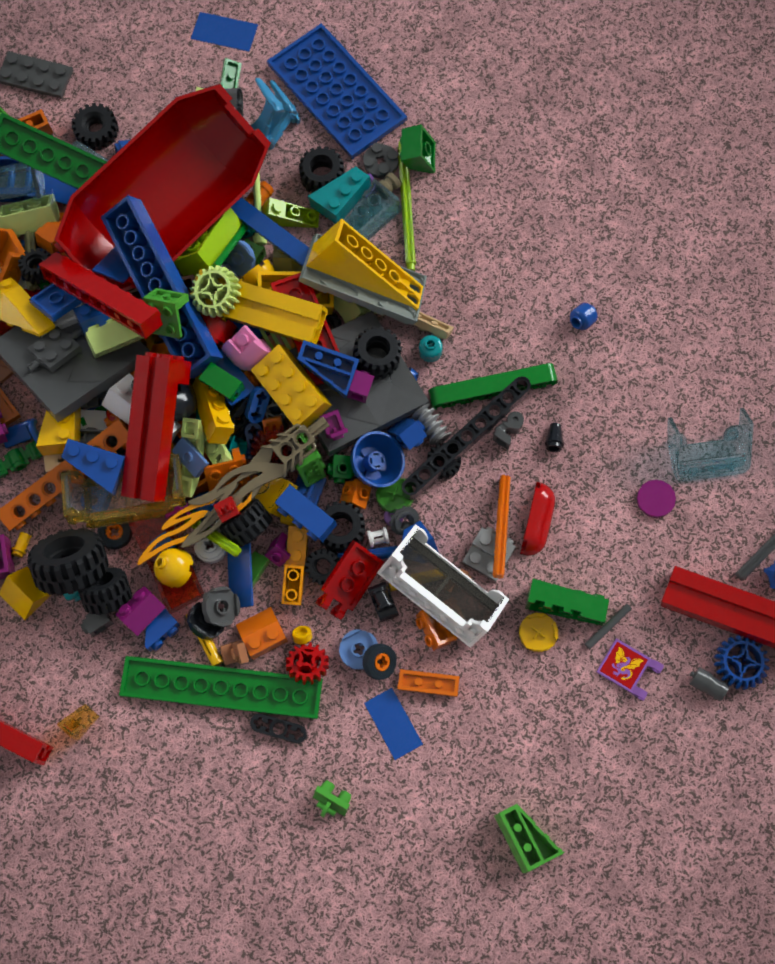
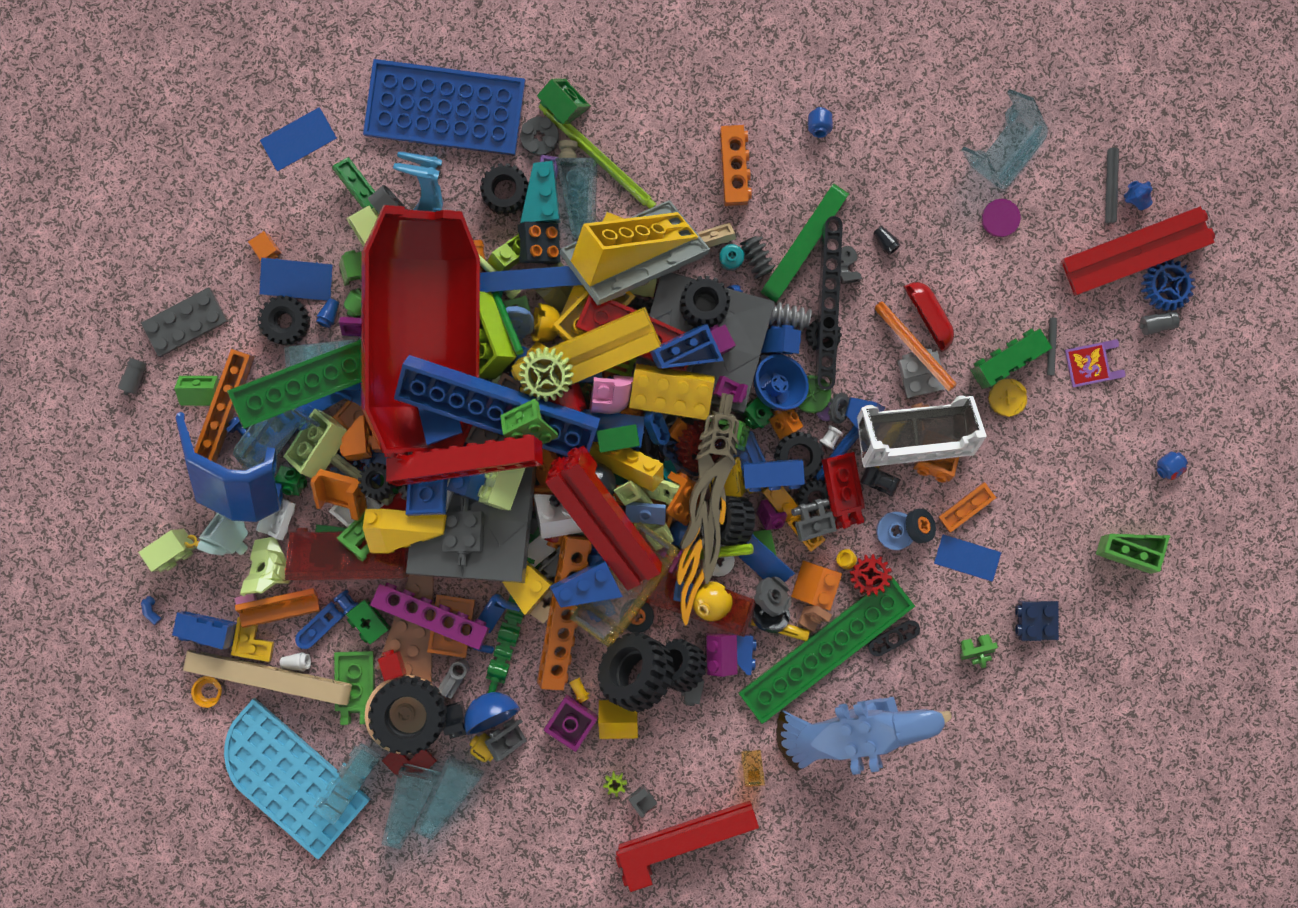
camera: 45 degrees left, 15 degrees up
(127, 105) = (295, 279): none -> blue window
(132, 73) = (264, 246): none -> orange brick
(173, 759) = (865, 731): none -> medium blue animal
(226, 509) = (716, 526): red tile -> none
(301, 583) = (813, 526): none -> dark grey plate
(308, 220) = (539, 243): none -> black brick
(399, 823) = (1037, 620): none -> dark blue plate
(448, 365) = (758, 256): none -> dark grey piece
(510, 270) = (729, 135): none -> orange brick
(618, 803) = (1172, 465): none -> blue head

